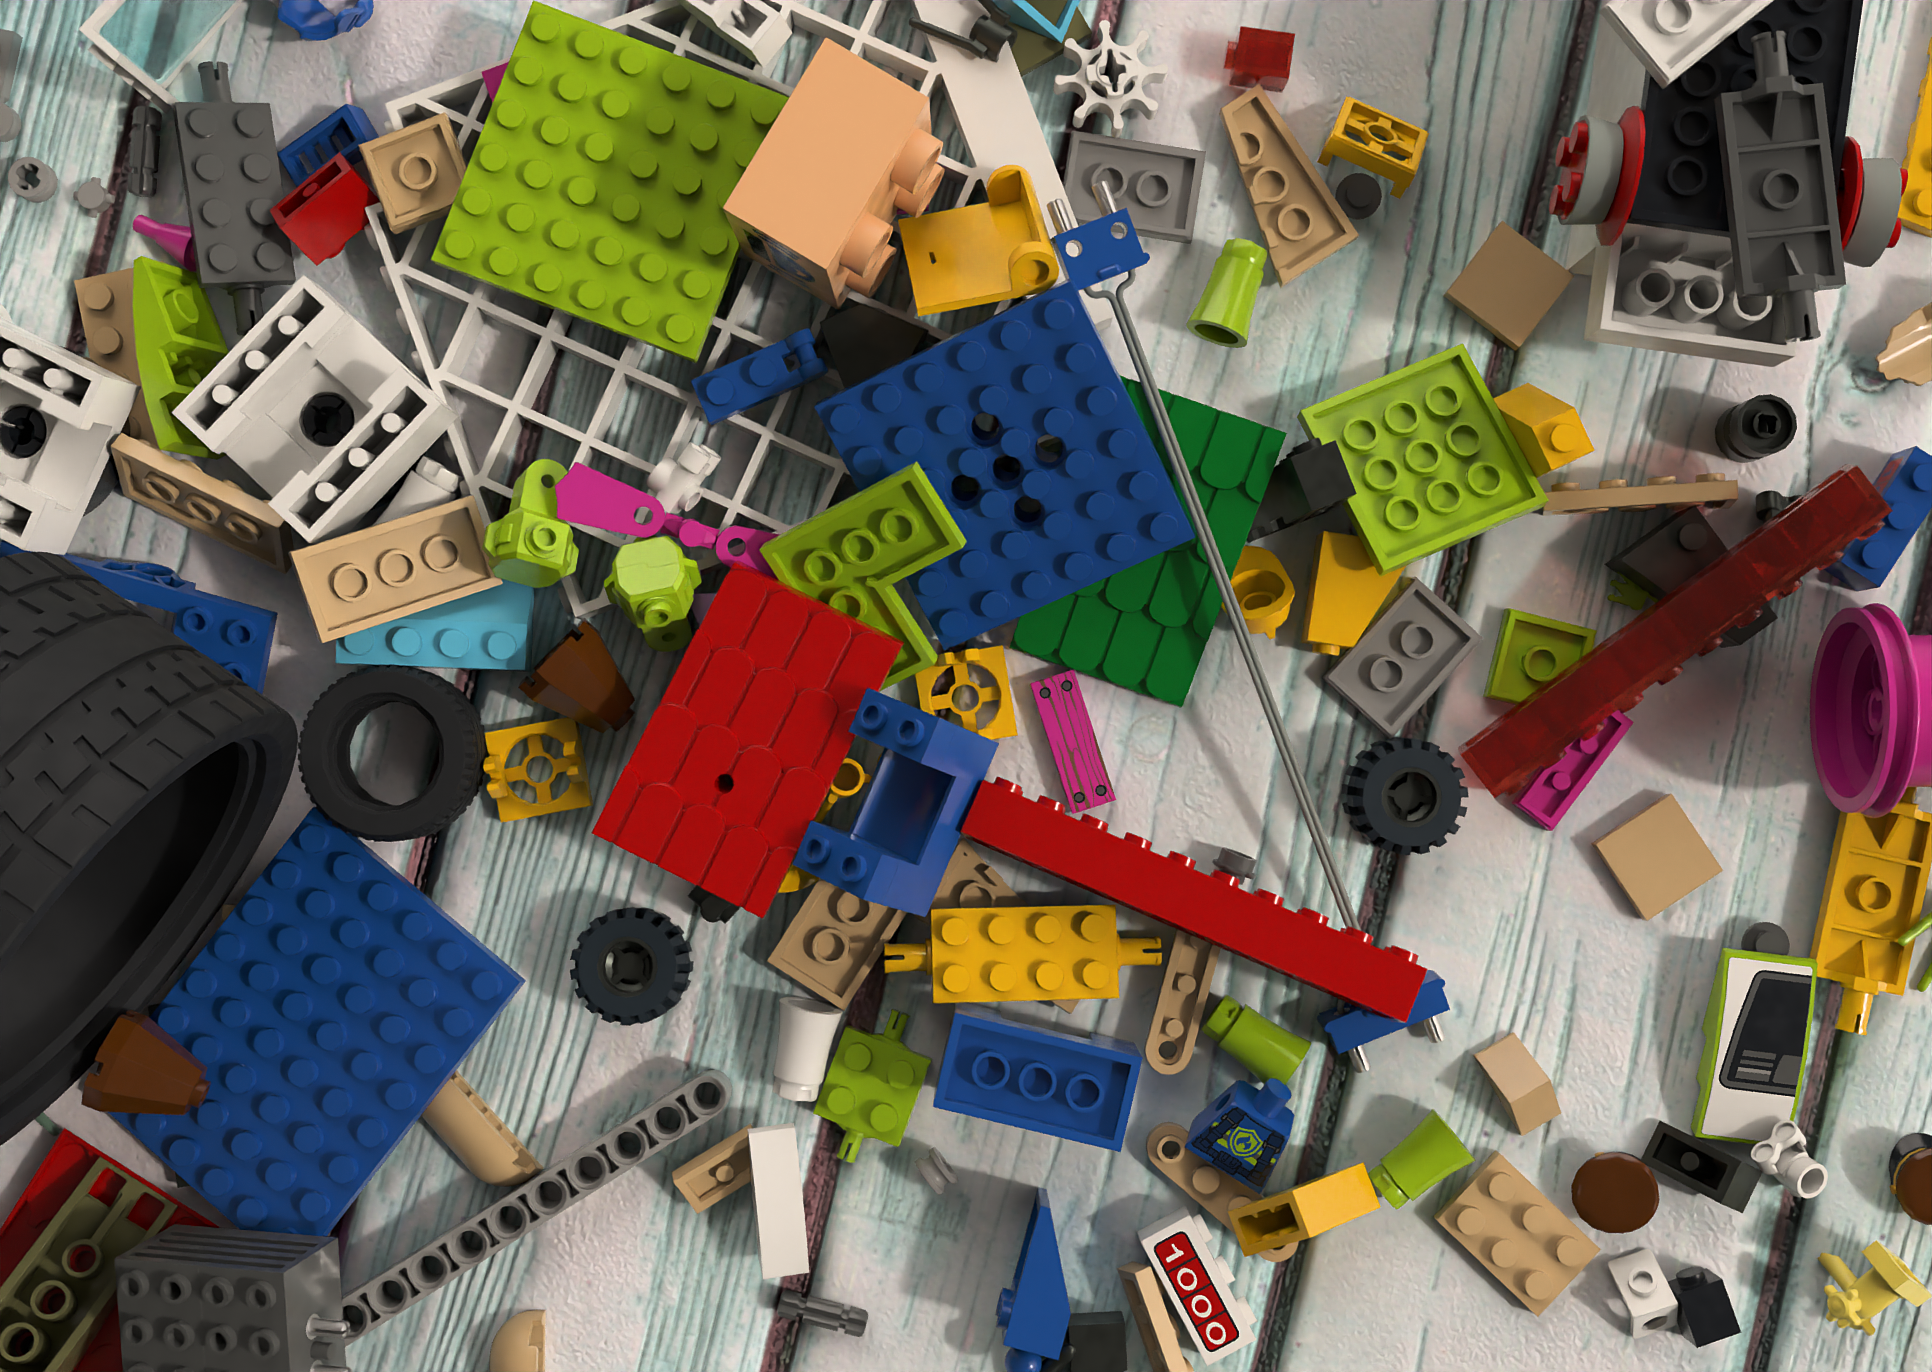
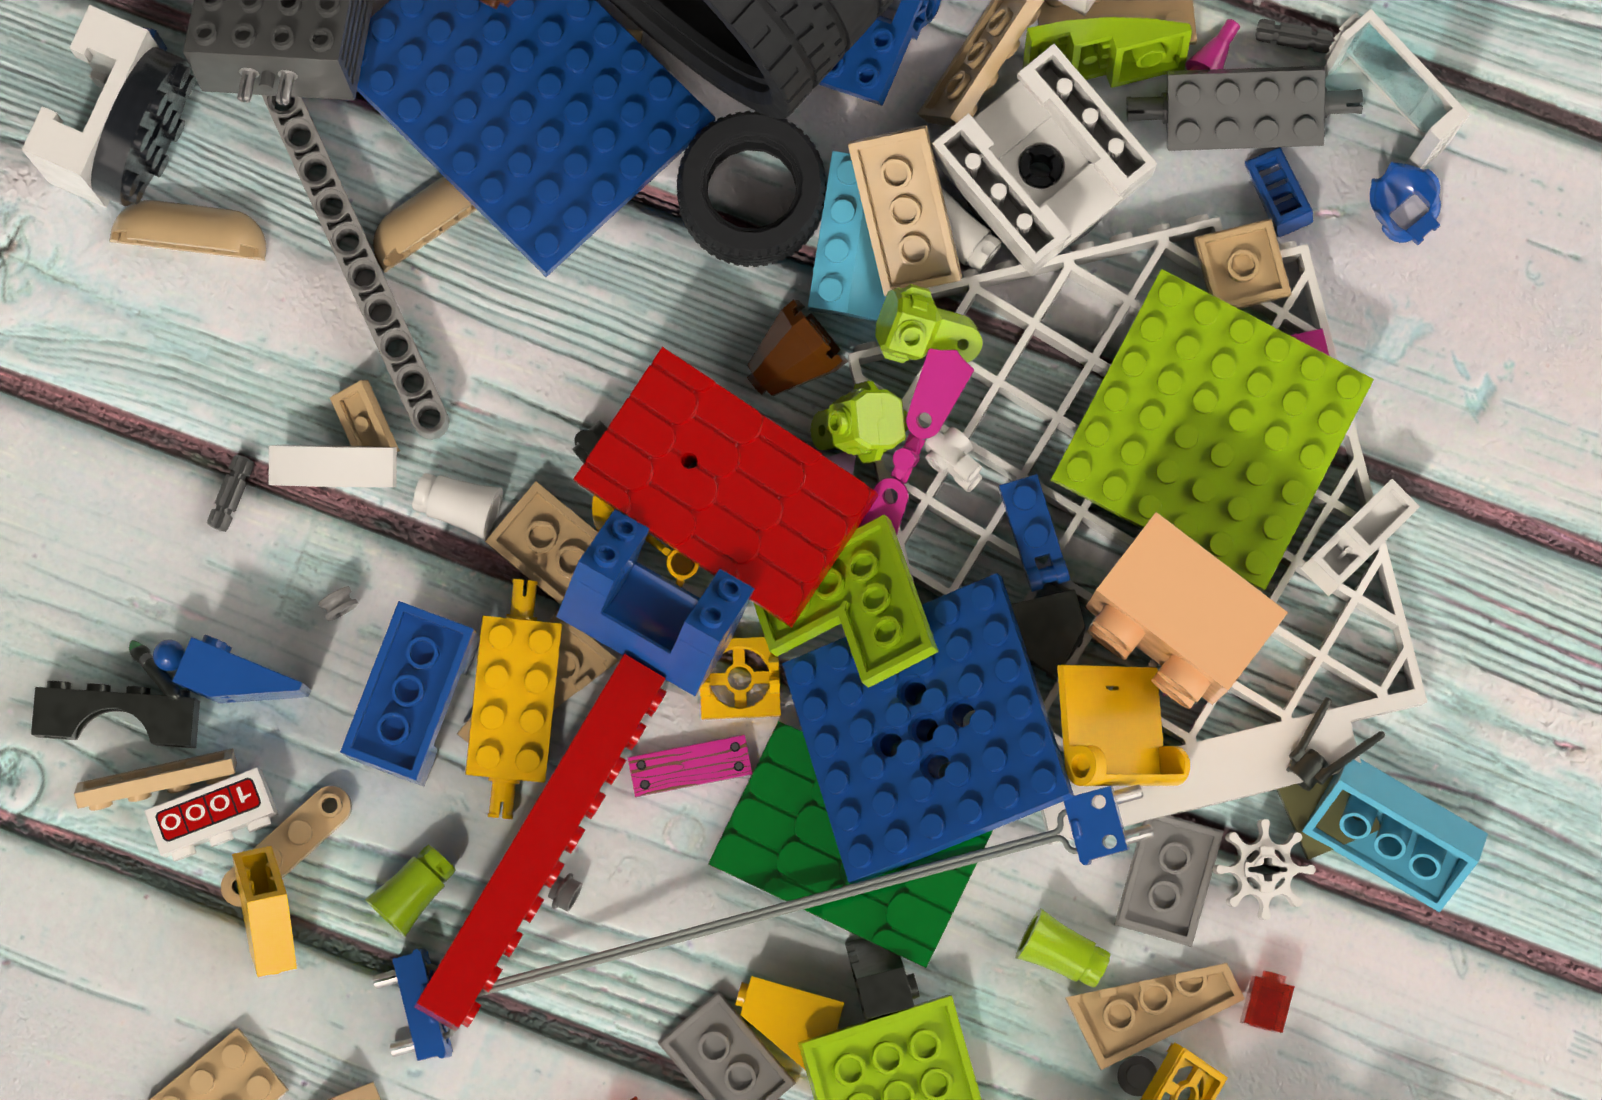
camera: 90 degrees right, 5 degrees down
(326, 209) = (1223, 184): red brick -> none
(499, 746) = (695, 280): yellow piece -> none
(631, 965) = (546, 367): black wheel -> none
(872, 1085) = (417, 558): lime plate -> none
(1181, 1001) = (454, 830): tan plate -> none
(1244, 1131) = (336, 869): blue torso -> none
(1262, 590) = (800, 940): yellow piece -> none
(1404, 795) = (606, 1045): black wheel -> none
(1420, 1161) = (290, 1019): lime plant -> none

